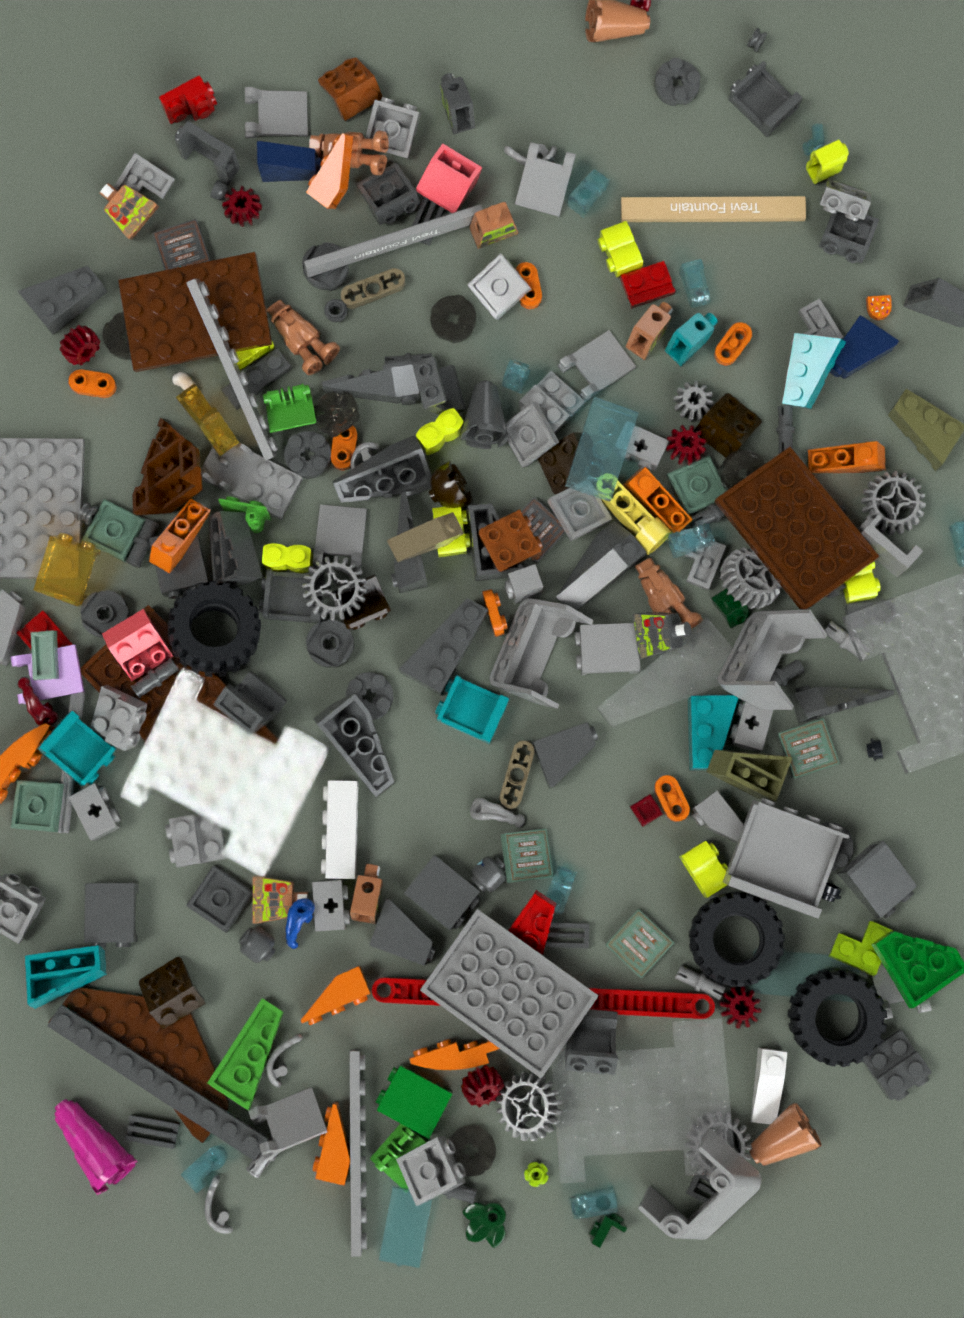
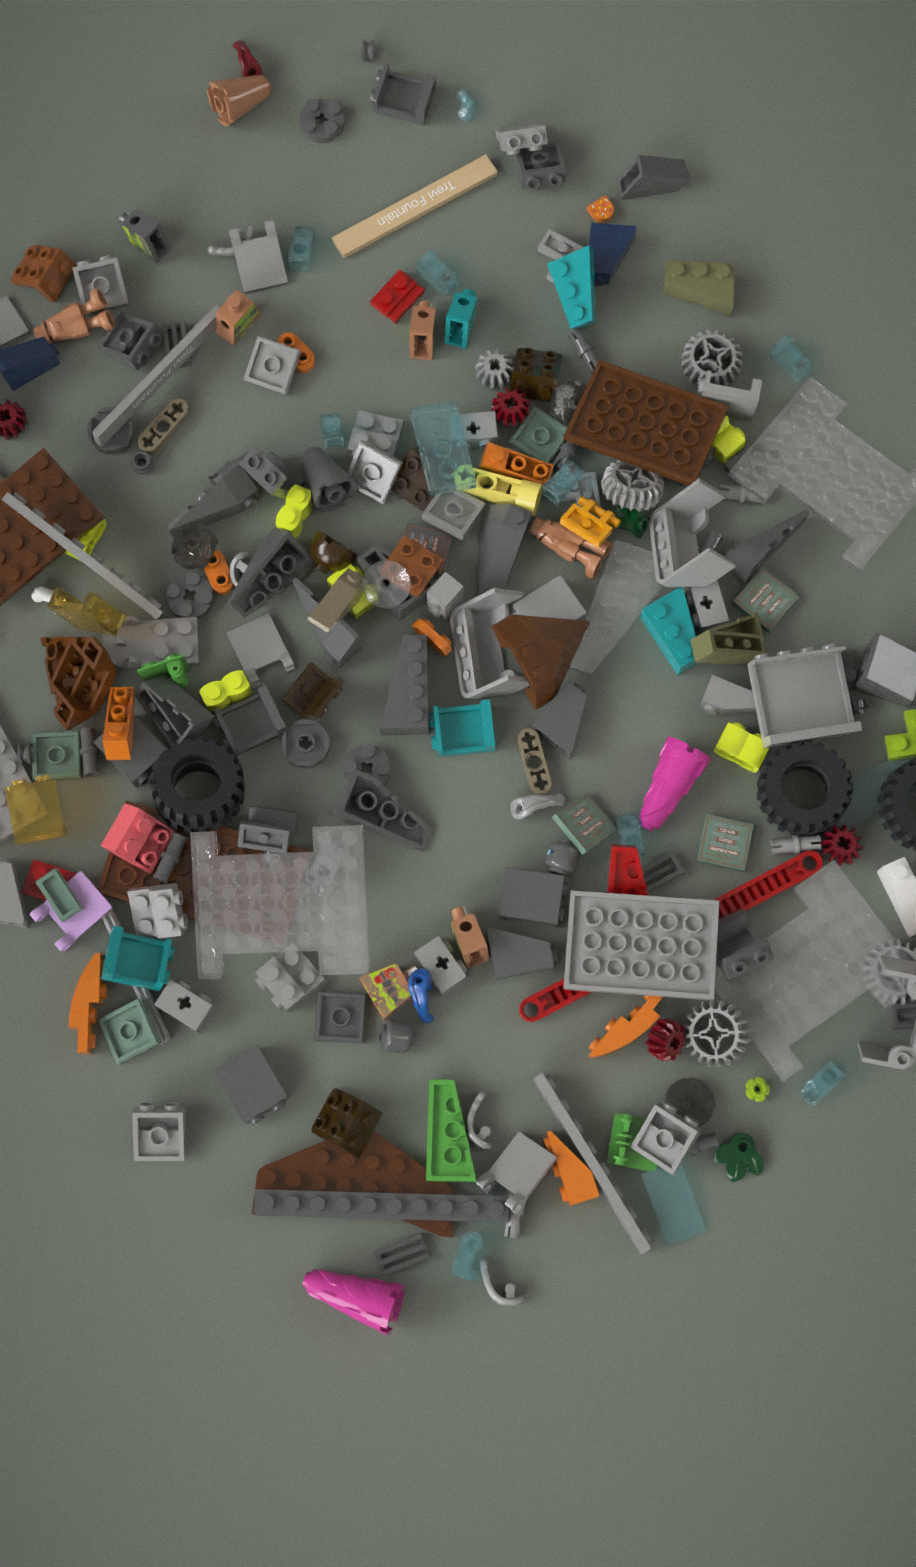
camera: 30 degrees left, 5 degrees down
(40, 713) = (83, 946): dark red piece -> none
(61, 972) = (239, 1160): teal wedge -> none
(103, 600) = (83, 820): dark grey plate -> none
(261, 376) = (110, 550): dark grey plate -> none
(289, 408) = (151, 565): bright green hinge -> none
(300, 334) = (123, 498): nougat piece -> none
(324, 590) = (290, 683): light grey gear -> none
(332, 179) = (74, 354): slope -> none
(342, 830) = (411, 894): white brick -> none
(342, 990) = (496, 1030): orange slope -> none
(413, 1101) = (614, 1088): green panel -> none
(448, 330) = (251, 426): clear smoke plate -> none
(449, 179) = (175, 299): coral slope -> none
(477, 557) = (397, 589): none -> clear dish
(578, 682) = (542, 649): none -> reddish brown wedge
(600, 363) = (396, 382): light grey flag -> none
(600, 1229) = (840, 1102): dark green bracket -> none
(620, 249) = (357, 279): neon yellow brick -> none
(625, 862) = (672, 779): none -> dark pink cone
(646, 810) = (661, 728): dark red tile -> none
(659, 633) = (584, 572): torso -> none
(671, 798) = (678, 704): orange plate -> none
(687, 592) = (587, 525): none -> light orange plate
(733, 345) = (497, 306): orange plate -> none
(827, 161) = (487, 115): neon yellow brick -> none
(848, 458) = (653, 344): orange slope -> none
(874, 749) = (821, 568): black plate -> none

